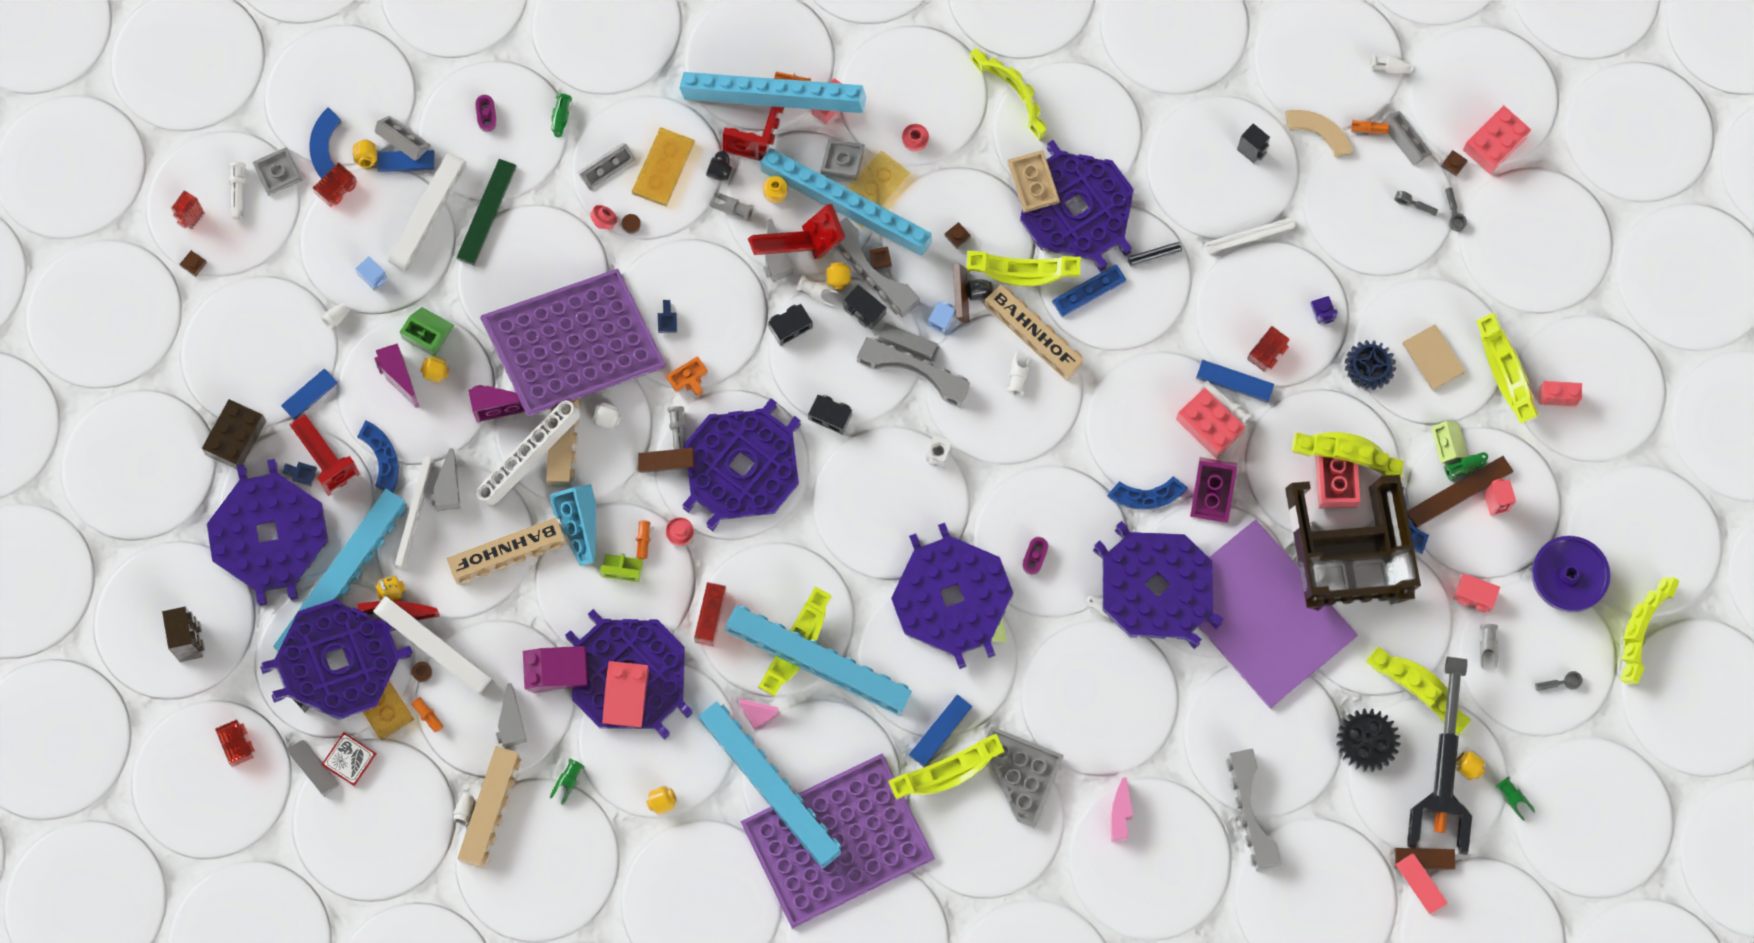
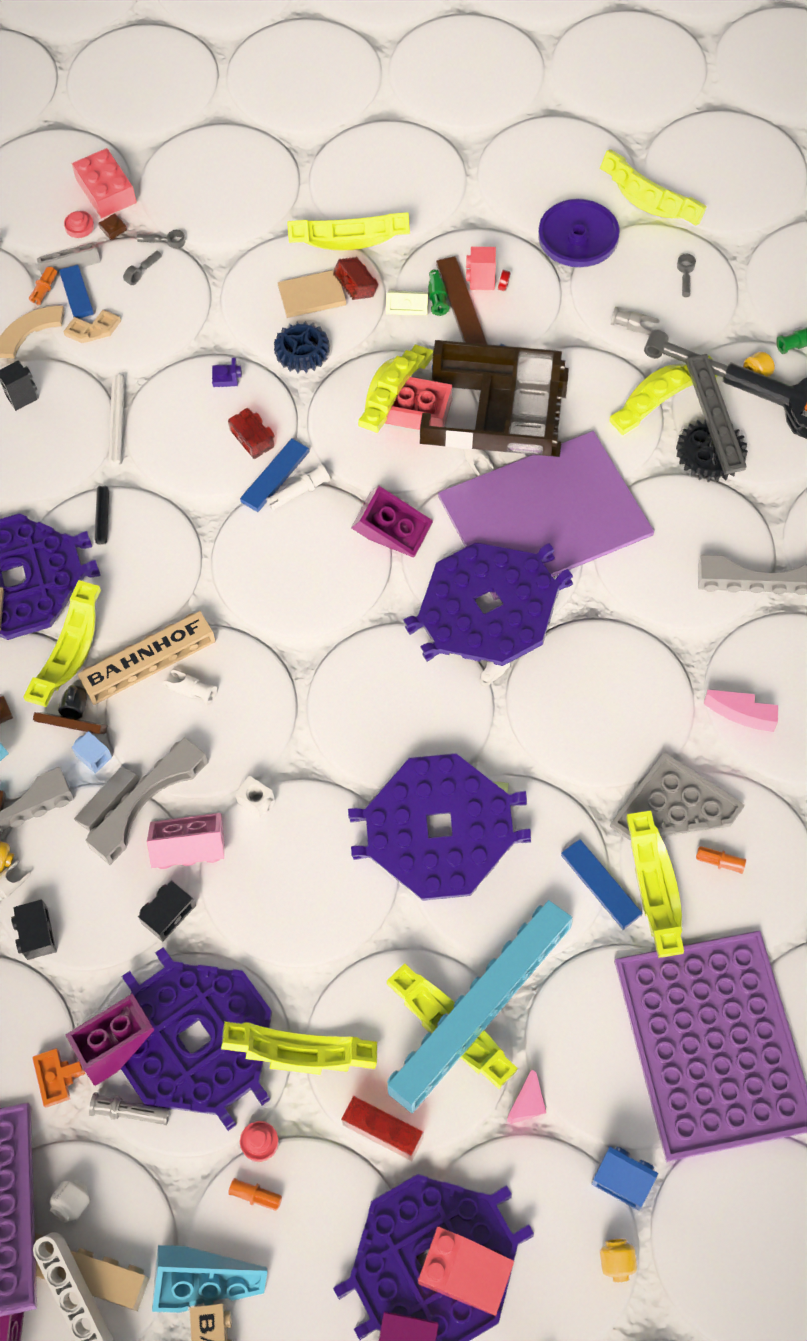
camera: 70 degrees left, 10 degrees down
(621, 568) = (284, 1234): lime panel -> none
(666, 460) = (158, 1133): reddish brown tile -> none
(717, 791) = (625, 1177): none -> slope
(721, 404) = (110, 1038): none -> magenta slope
(750, 538) = (298, 1051): none -> neon yellow piece
(770, 785) = (628, 1108): medium azure brick -> none
(864, 307) = (45, 836): black brick -> none
(889, 410) = (186, 840): none -> bright pink slope
(985, 818) = (721, 859): none -> orange axle
(1035, 556) = (416, 723): magenta plate -> none
(1089, 290) = (118, 591): blue tile -> none
(1147, 499) = (381, 592): blue tile -> none
(1210, 423) = (316, 506): coral brick -> none
(1341, 190) = (101, 327): none -> tan tile
(1372, 156) = (76, 292): none -> blue tile
(1398, 732) = (715, 414): none -> dark grey tile
(1445, 134) = (79, 224): none -> coral plate
(1457, 390) = (355, 278): none -> clear red brick
(1476, 593) = (575, 317): coral brick -> none
(1498, 520) = (504, 280): none -> tile
(1560, 393) = (388, 195): coral brick -> none

